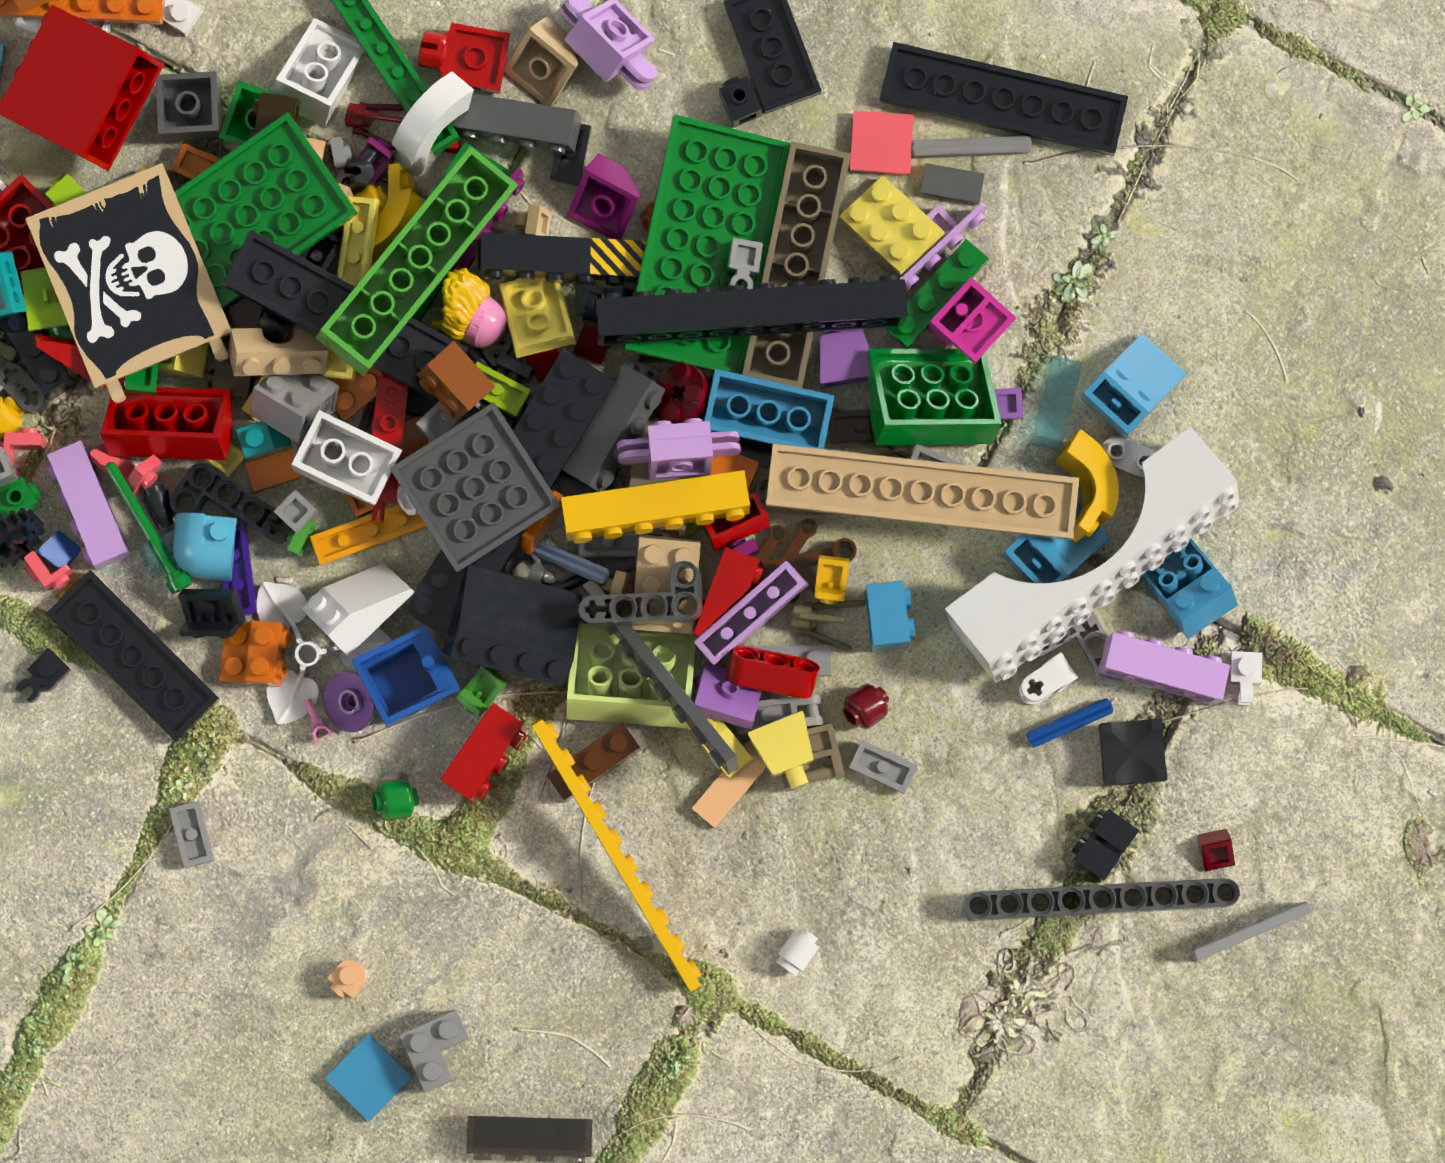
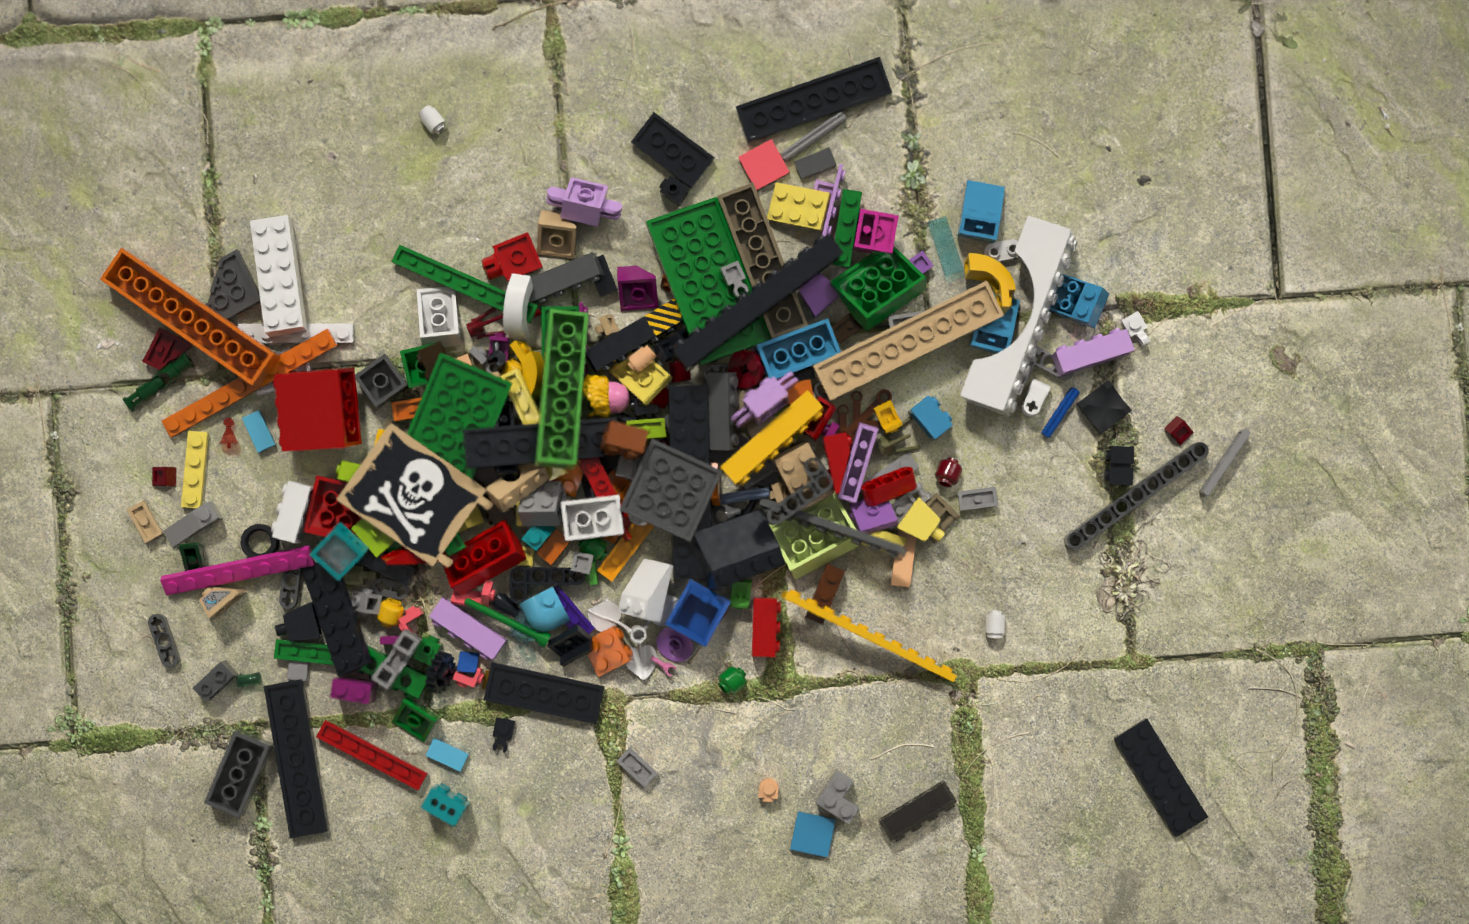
camera: 30 degrees left, 5 degrees up
(327, 502) = (593, 547): none -> green head
(551, 292) = (641, 358): none -> light nougat brick

